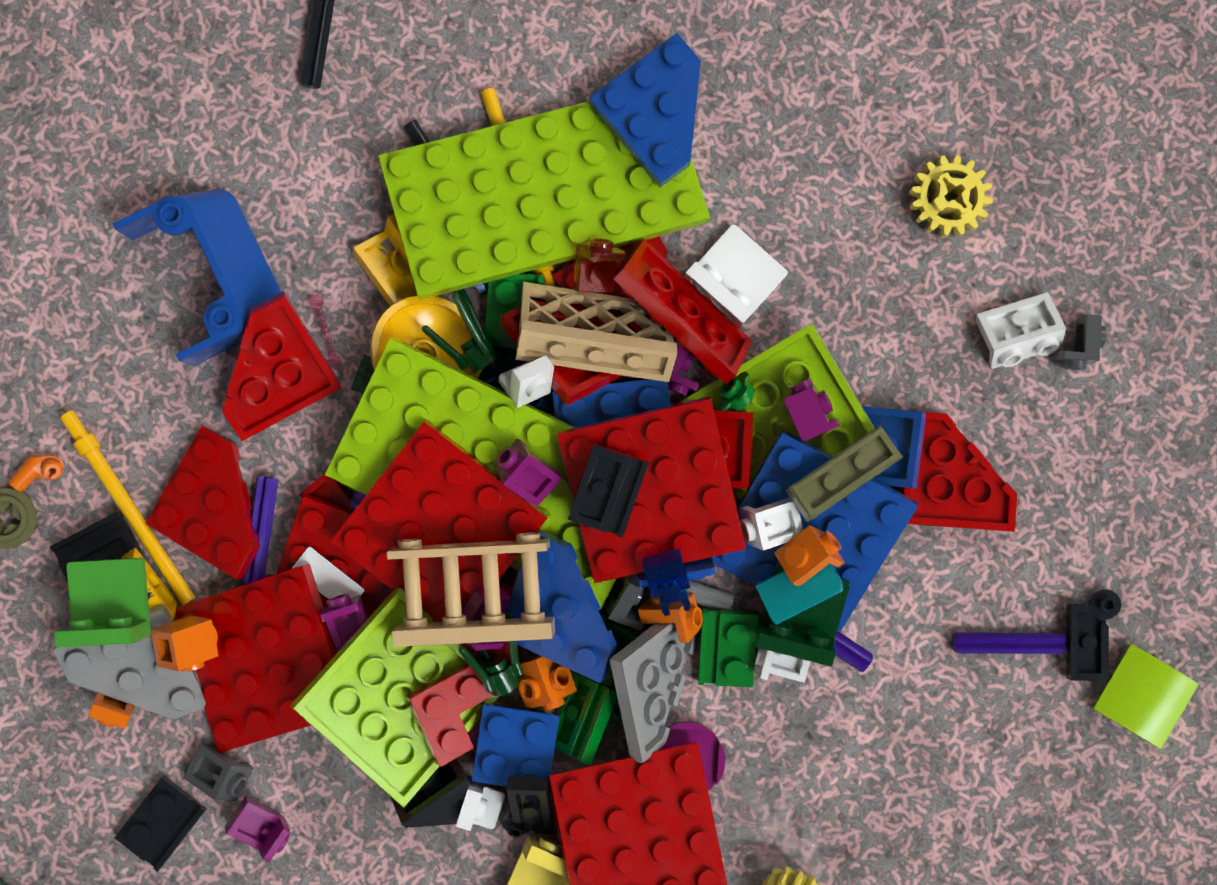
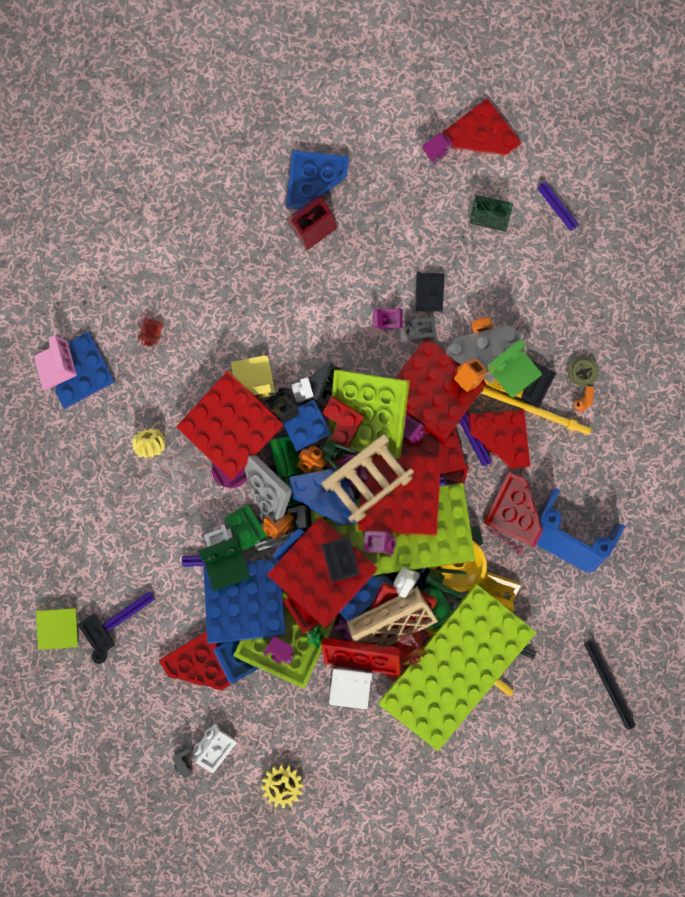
camera: 155 degrees right, 0 degrees up
(328, 578) = (431, 441): white sticker -> none
(655, 108) = (434, 735): blue plate -> none
(667, 579) = (290, 539): clear blue plate -> none
(770, 524) = (263, 592): white bracket -> none
(787, 600) = (233, 574): teal slope -> none
(809, 554) = (239, 590): orange bracket -> none
(843, 473) = (247, 634): olive tile -> none

